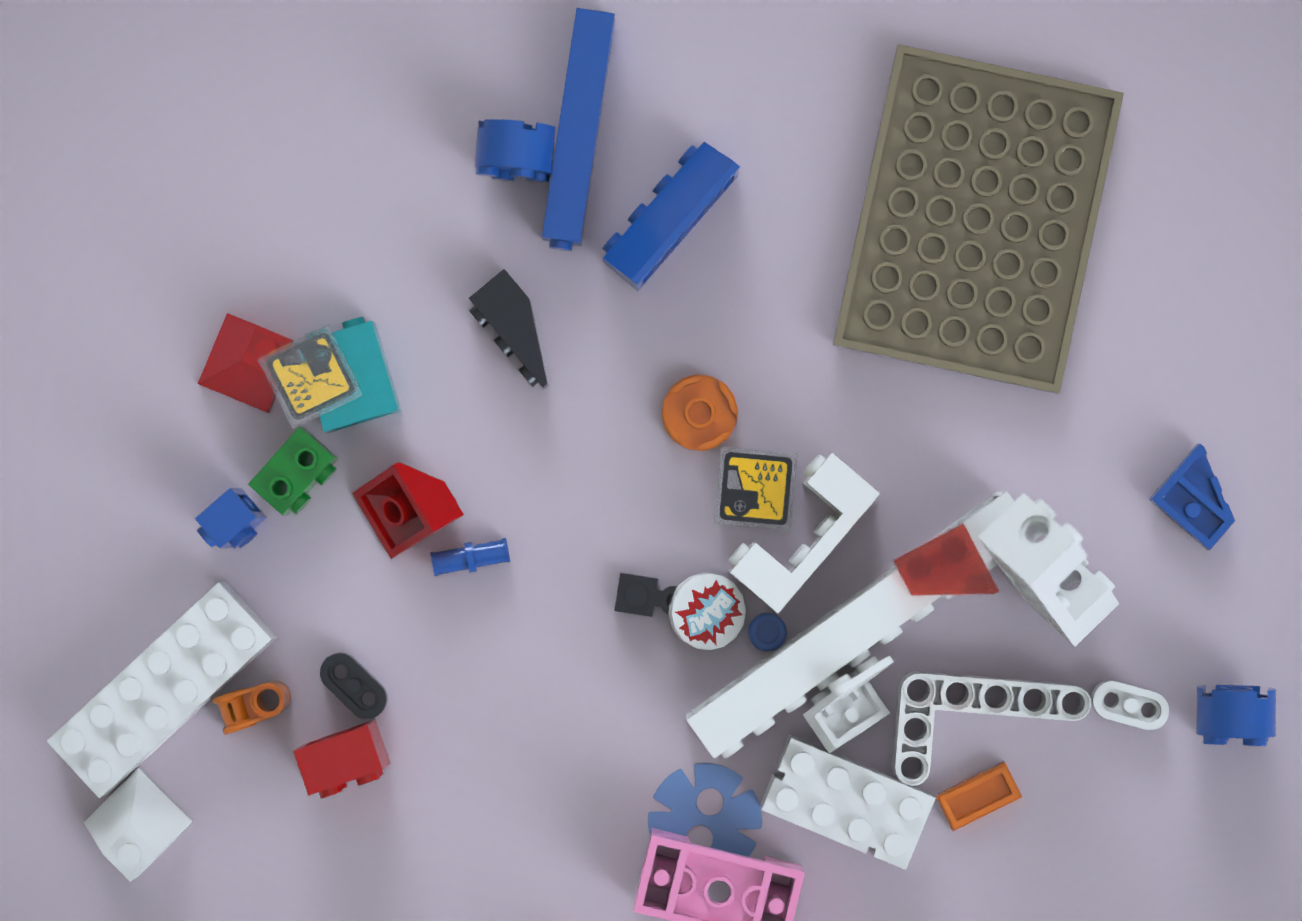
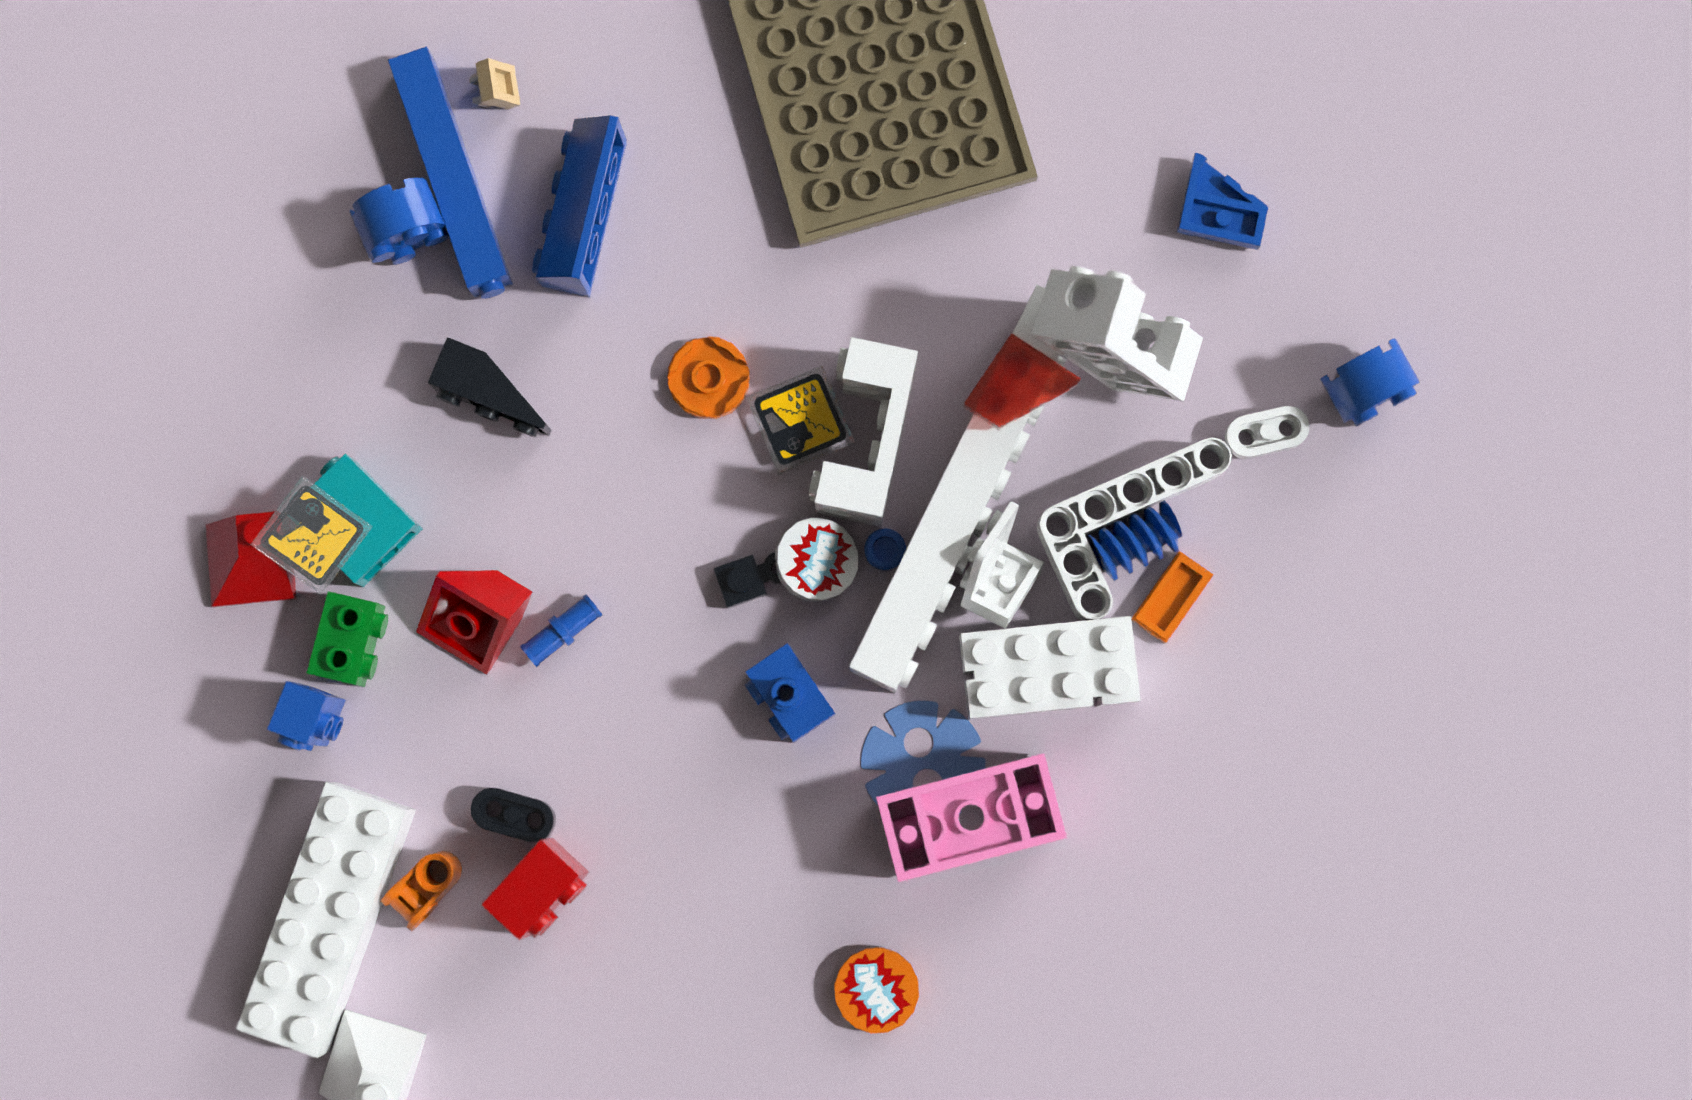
camera: 25 degrees left, 5 degrees down
(626, 709) = (789, 694): none -> blue brick
(655, 73) = (496, 84): none -> tan tile
(974, 737) = (1136, 540): none -> blue piece

